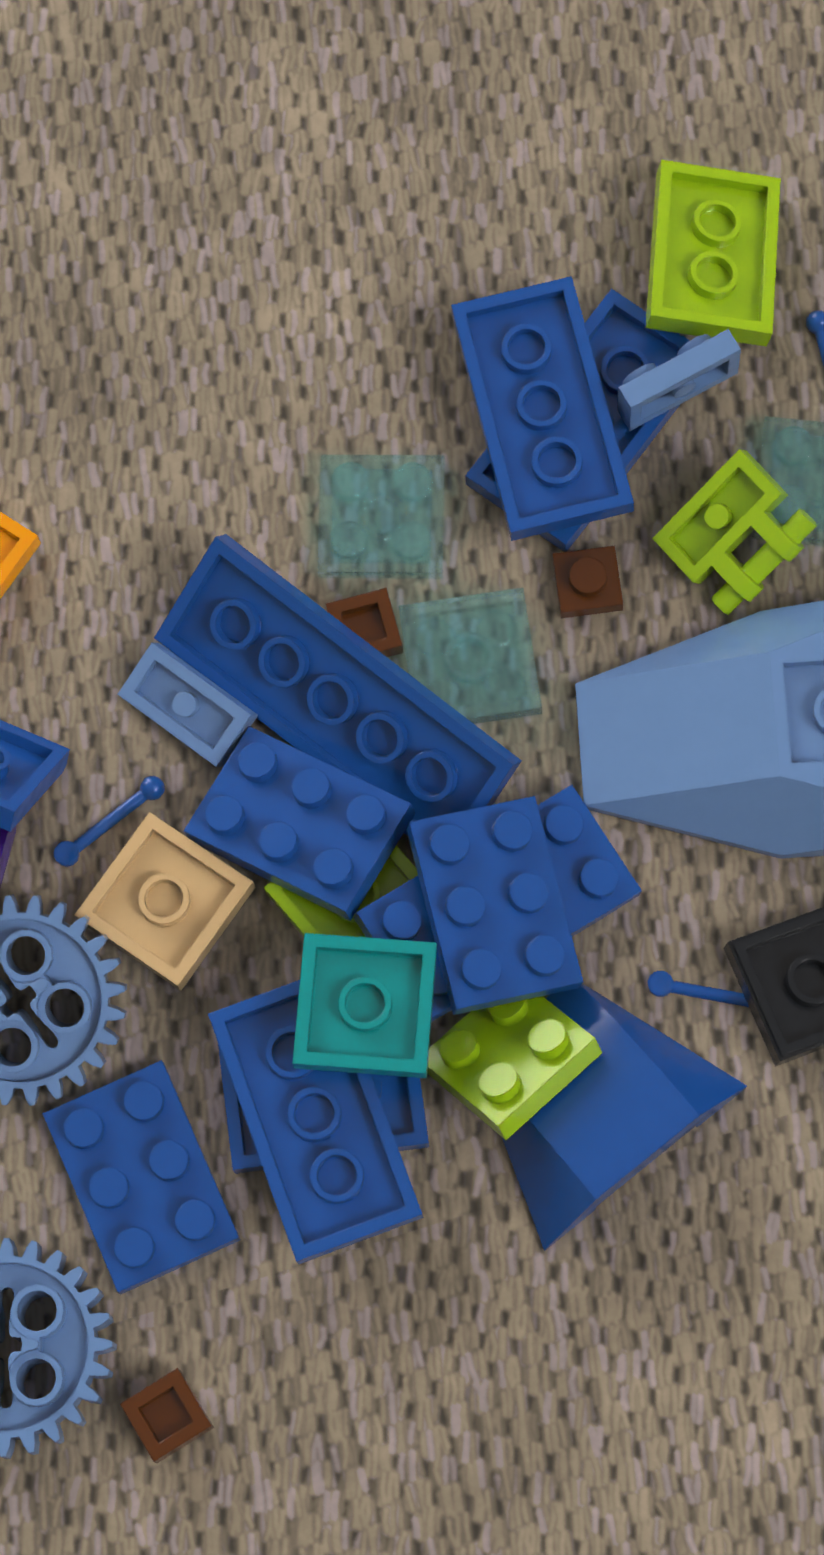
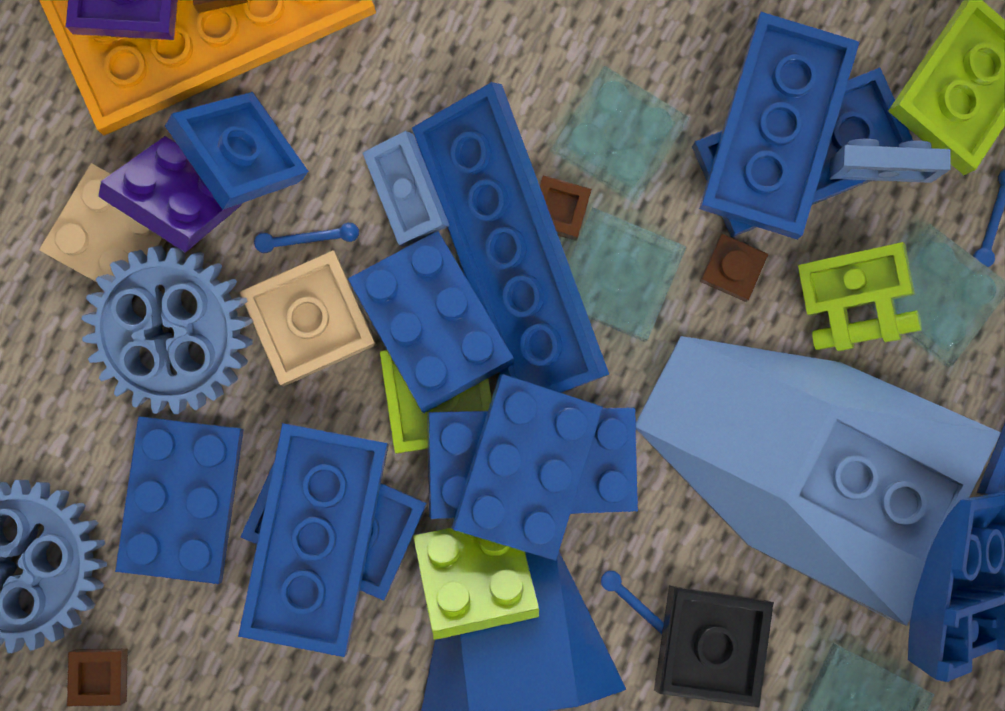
camera: 20 degrees right, 10 degrees up
(365, 1005) = (390, 489): teal plate -> none

